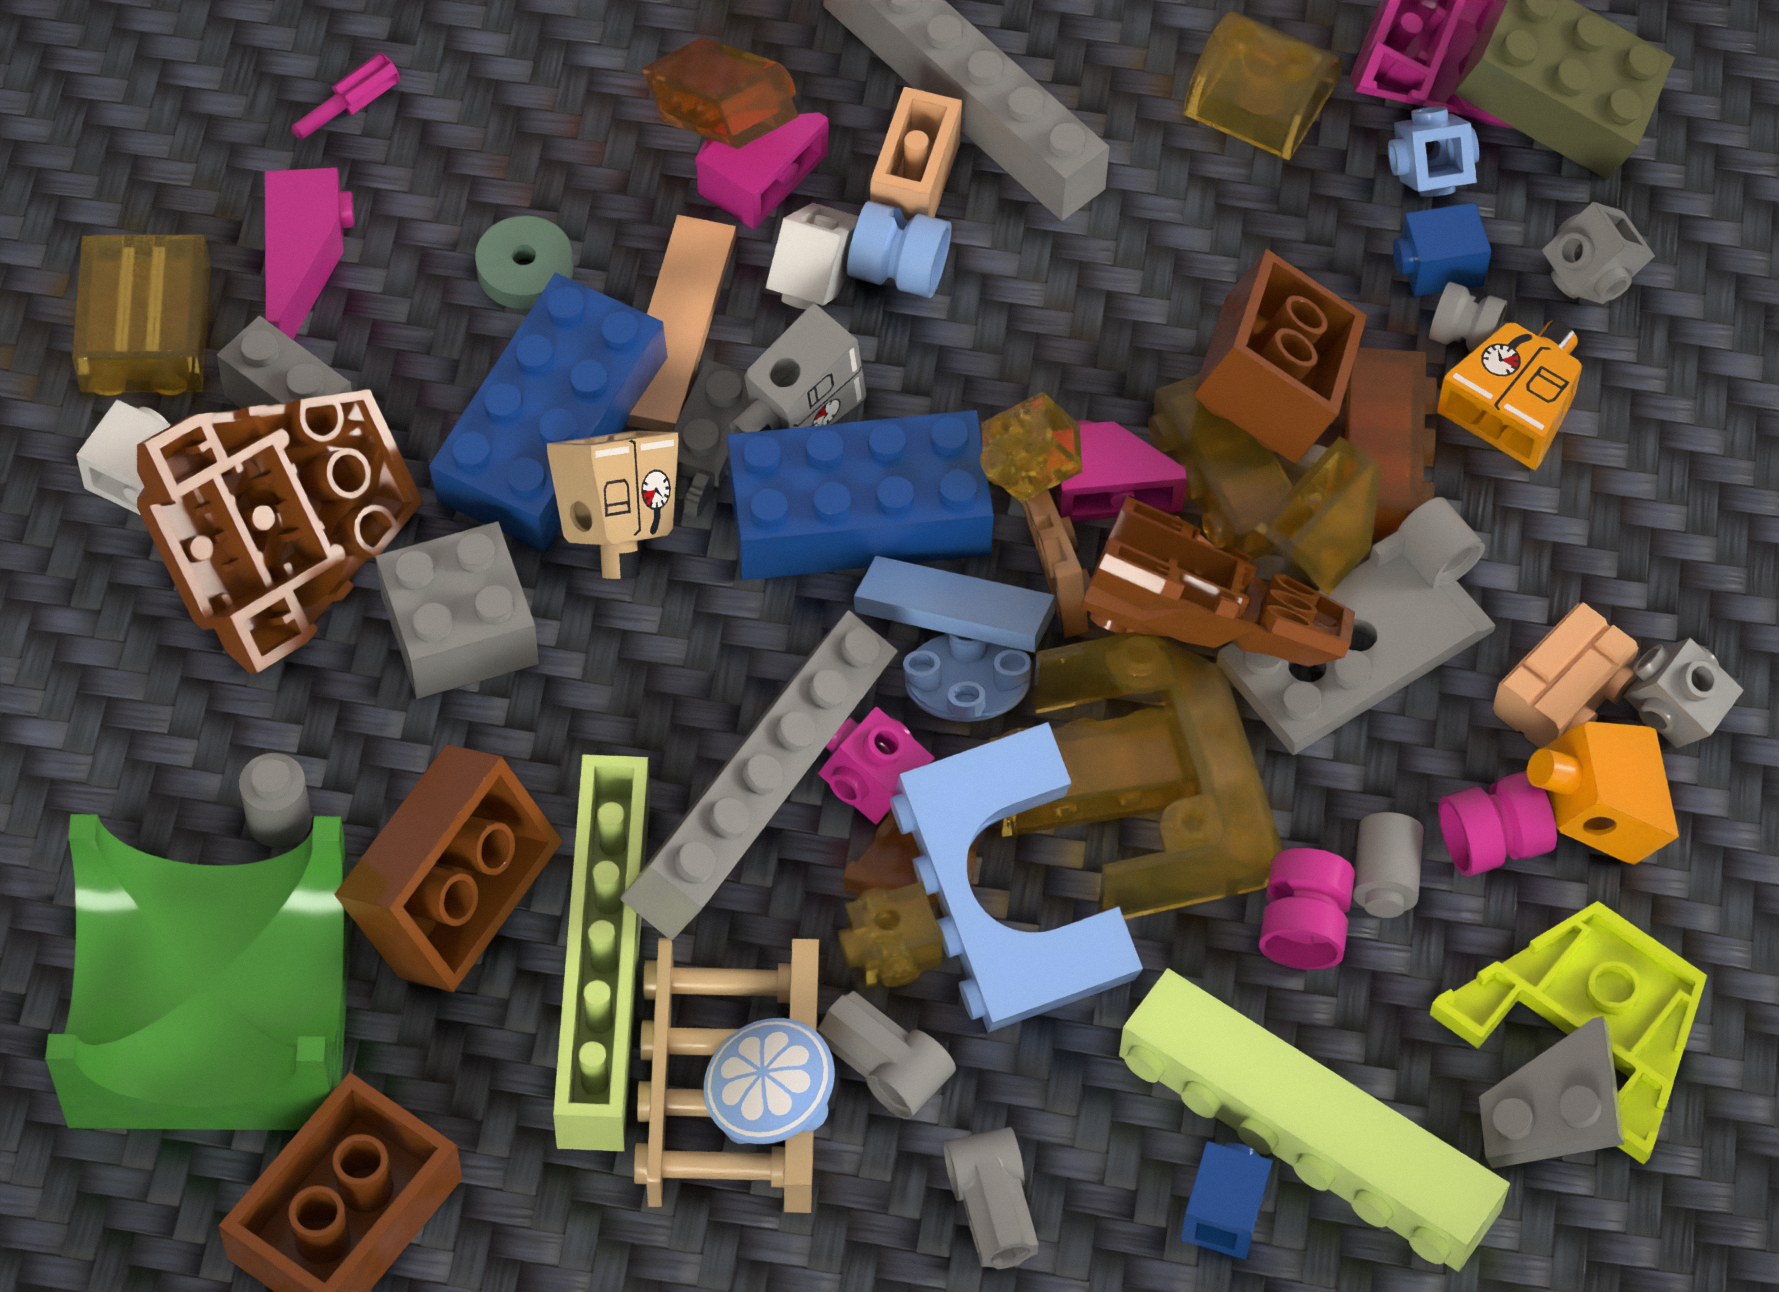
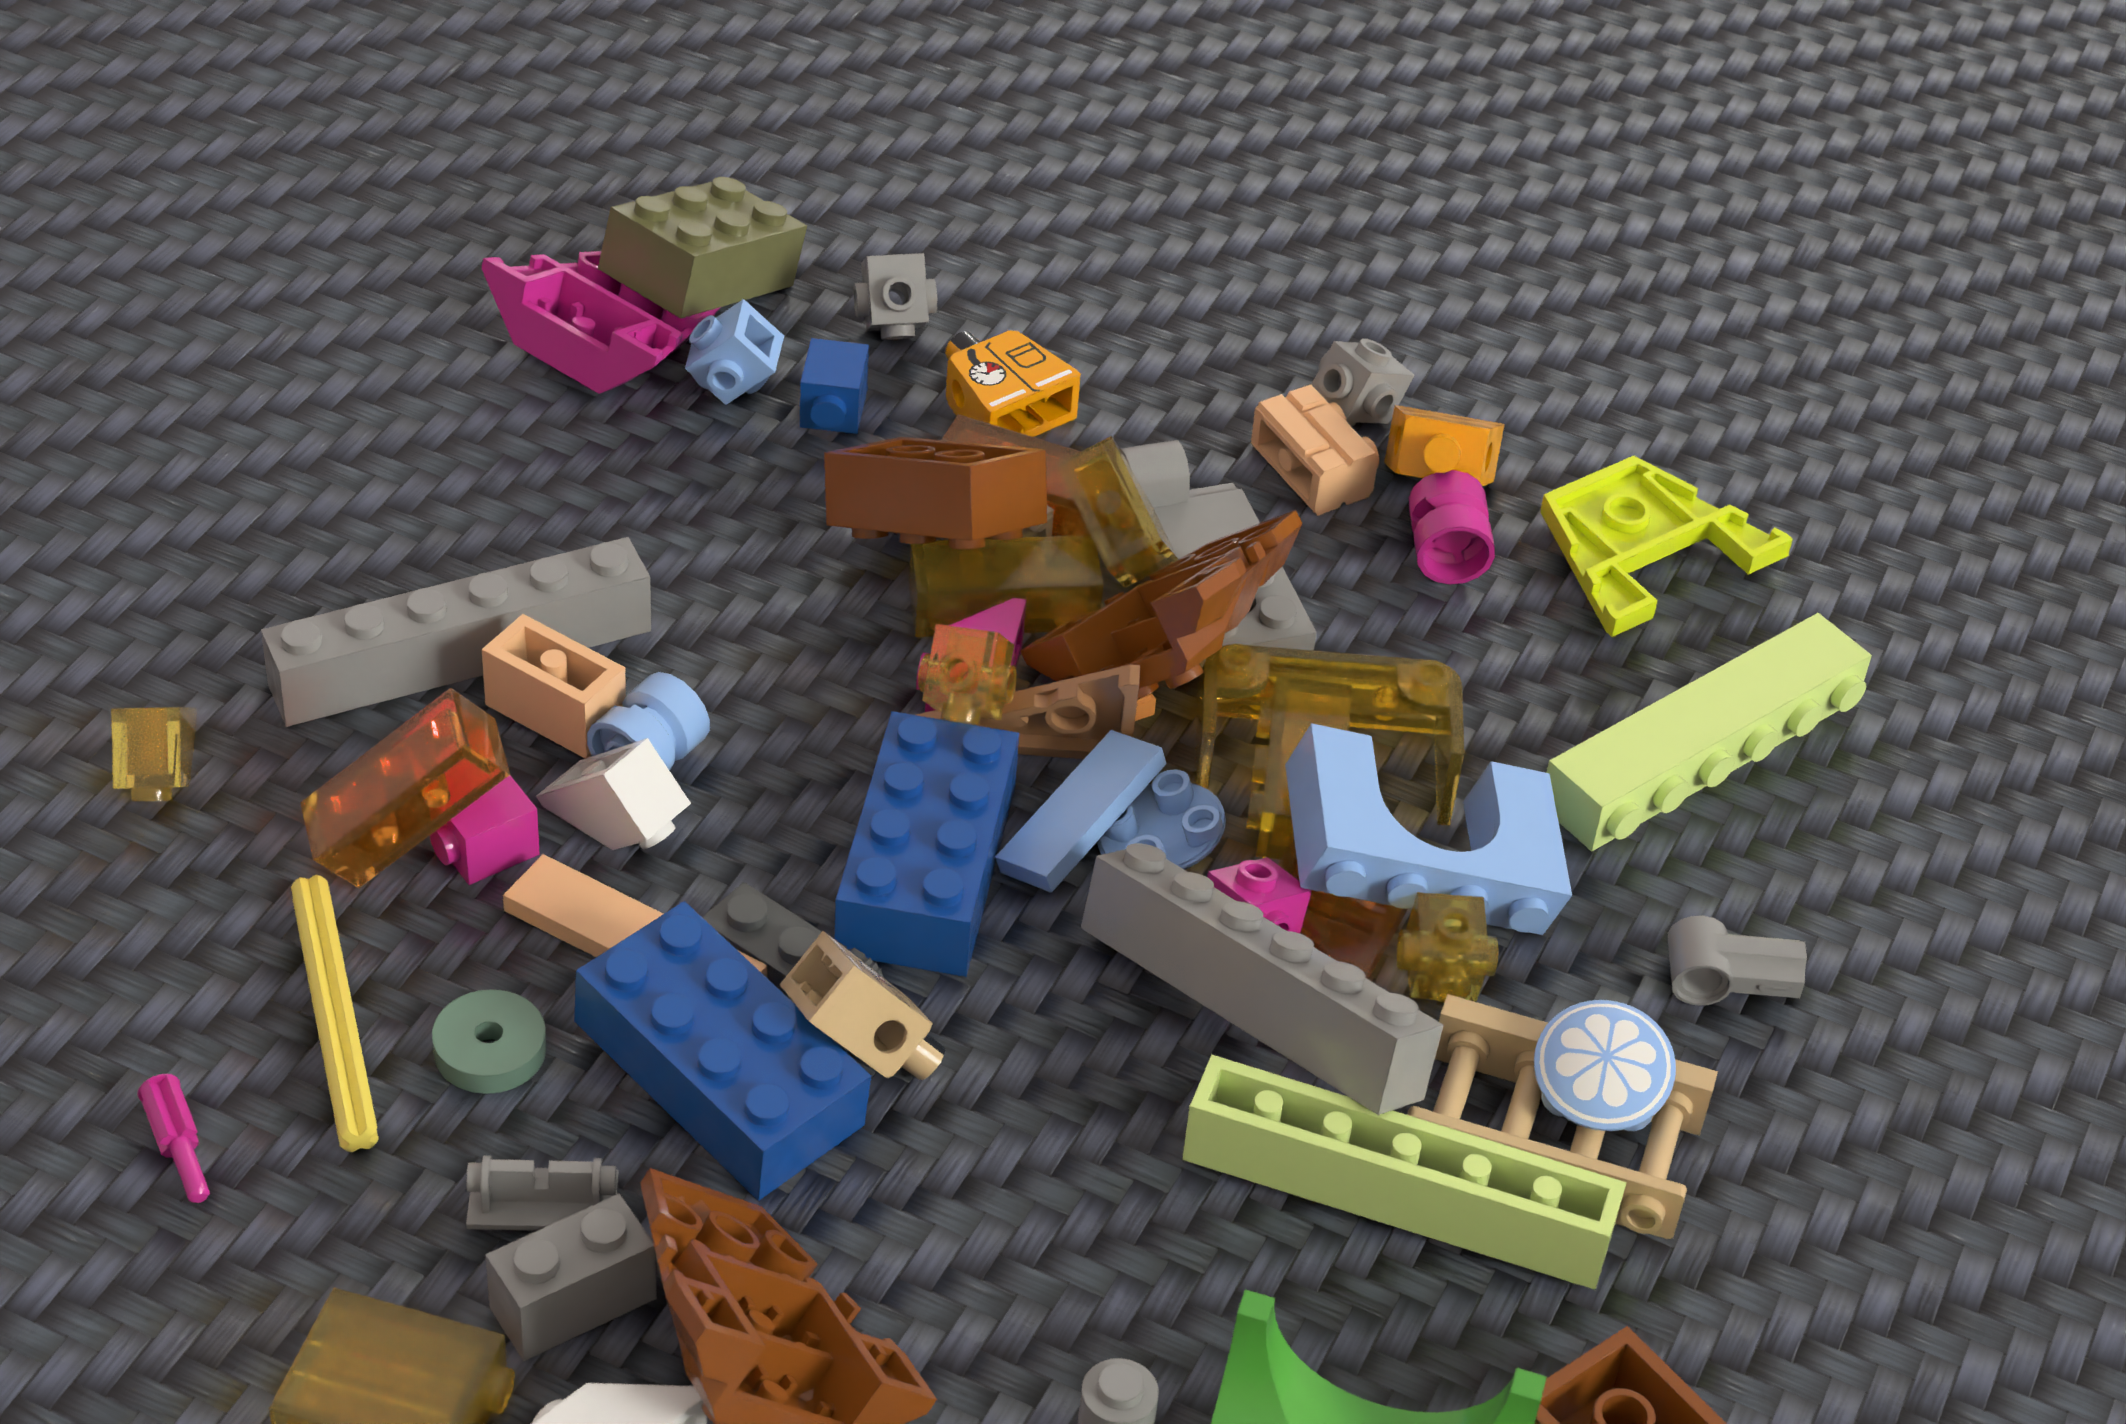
camera: 75 degrees left, 15 degrees down
(302, 240) = (371, 1221): dark pink slope -> none
(373, 344) = (531, 1198): none -> light grey hinge
(449, 867) = (1261, 1244): dark orange brick -> none
(457, 610) = (933, 1196): light grey brick -> none
(512, 148) = (334, 1014): none -> light yellow axle
(804, 377) = (785, 834): light grey torso -> none
(898, 1065) = (1573, 978): light grey piece -> none
(1226, 1198) = (1775, 805): blue brick -> none
(1260, 84) = (583, 442): clear yellow brick -> none
(1306, 909) = (1520, 675): dark pink wheel -> none
(1388, 863) = (1465, 609): light grey brick -> none
(1461, 317) = (913, 397): light grey wheel -> none
(1555, 1102) = (1731, 574): light grey wing -> none

